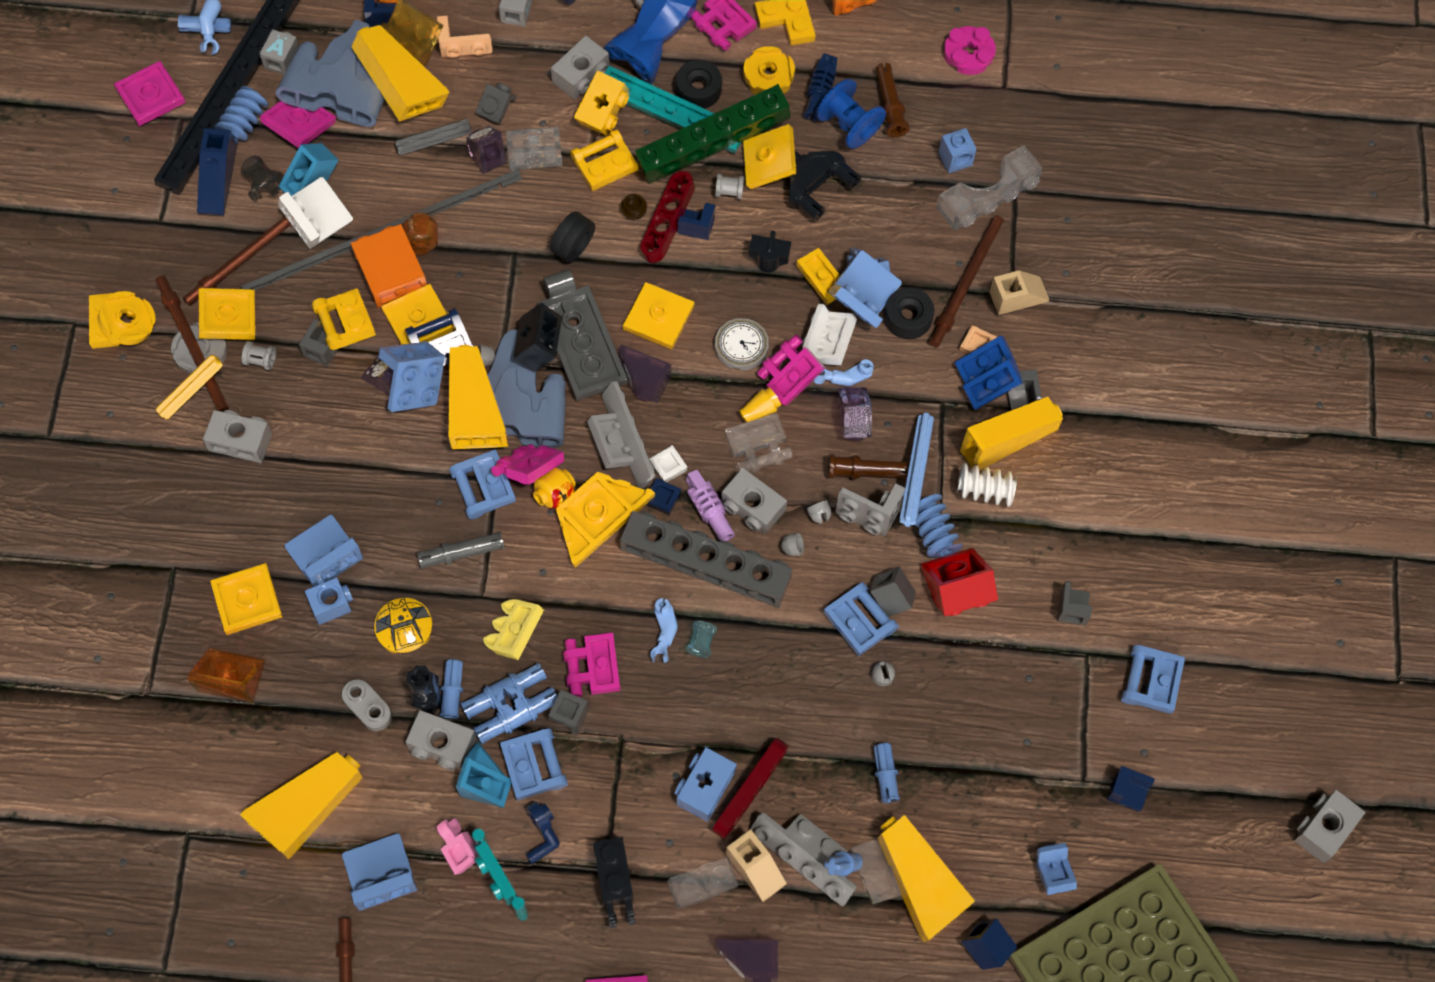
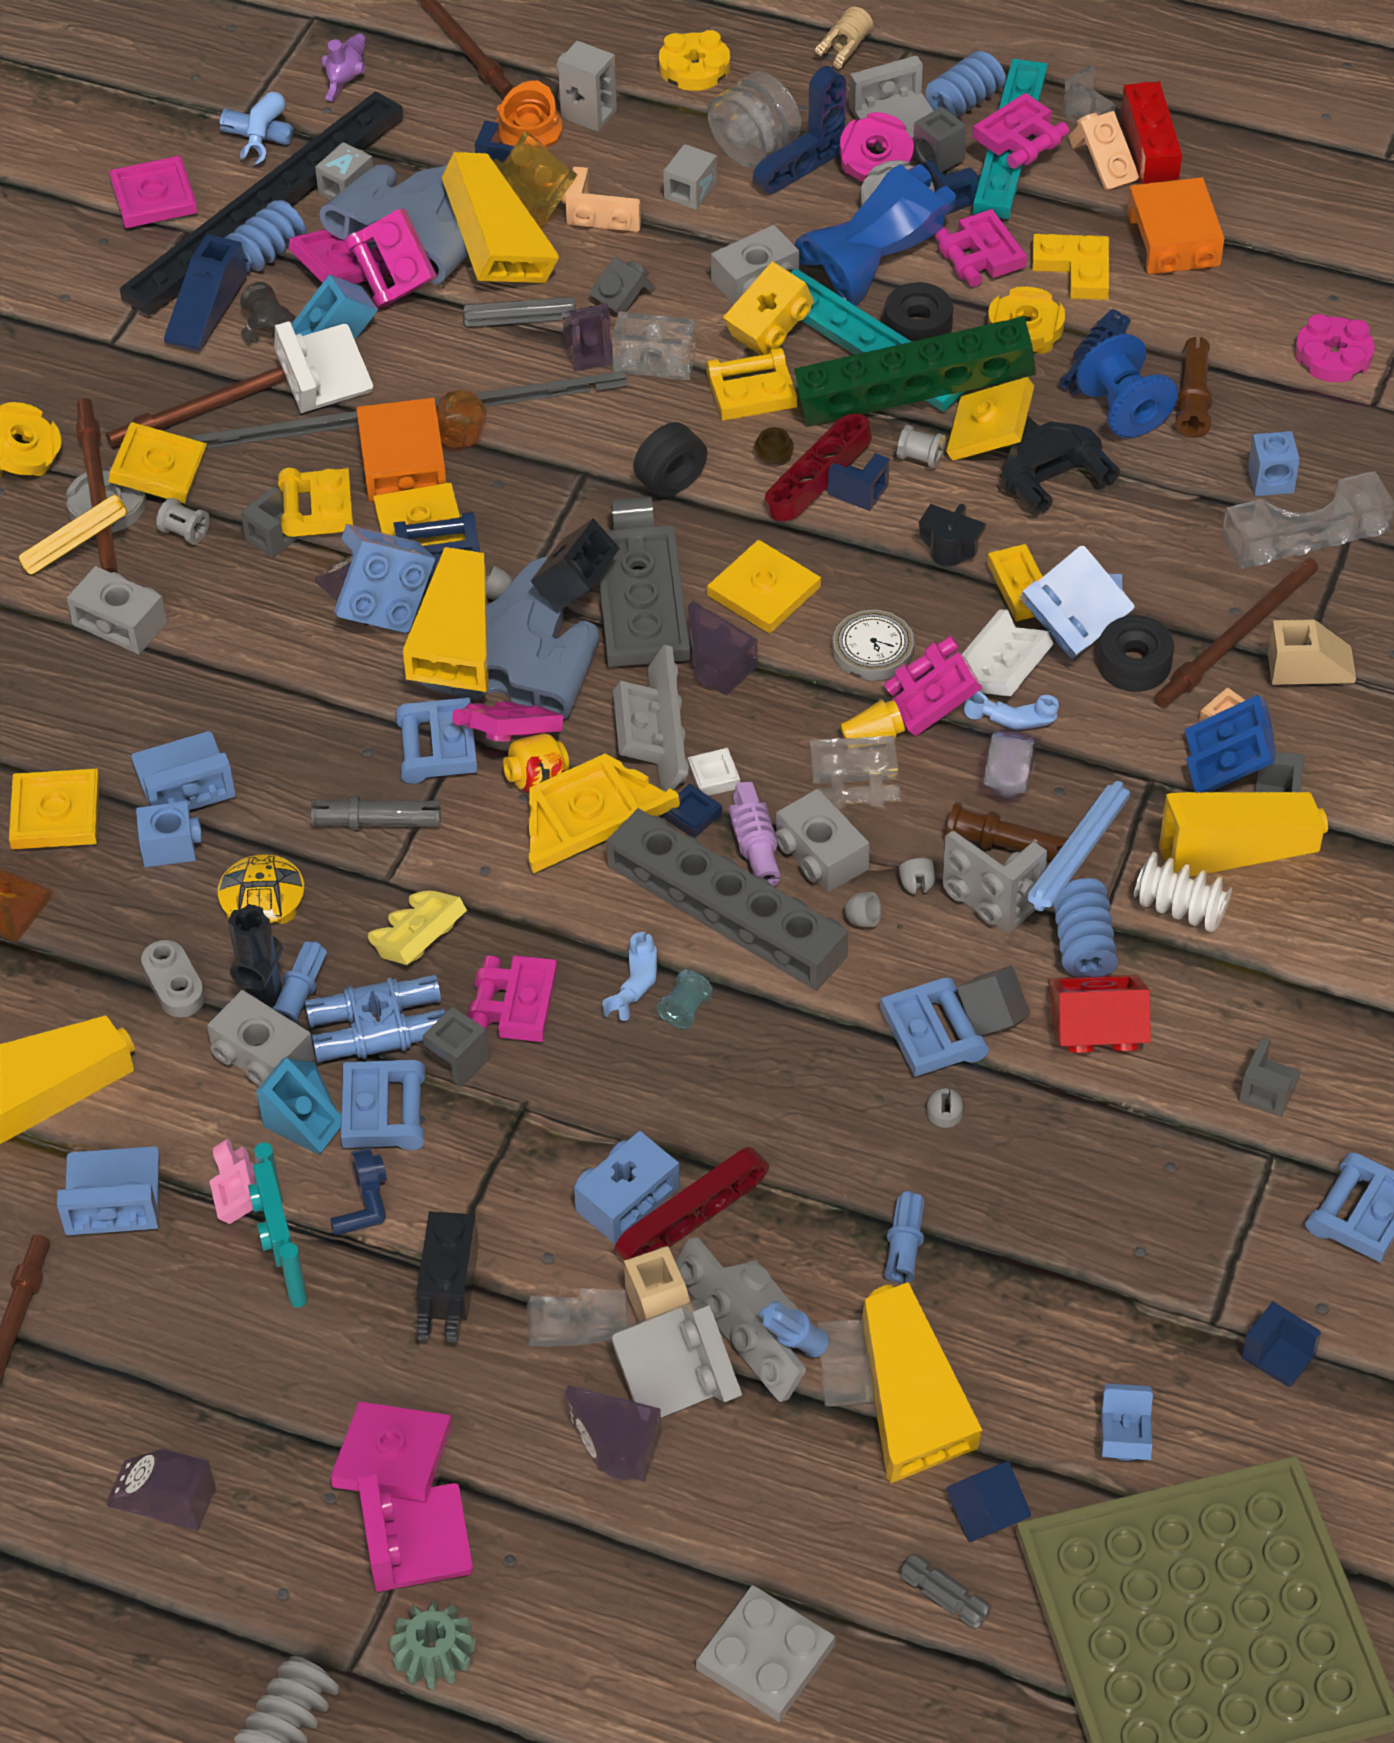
camera: 20 degrees right, 15 degrees down
(342, 113) = (401, 253): none -> dark pink plate
(776, 902) = (676, 1359): none -> light grey bracket

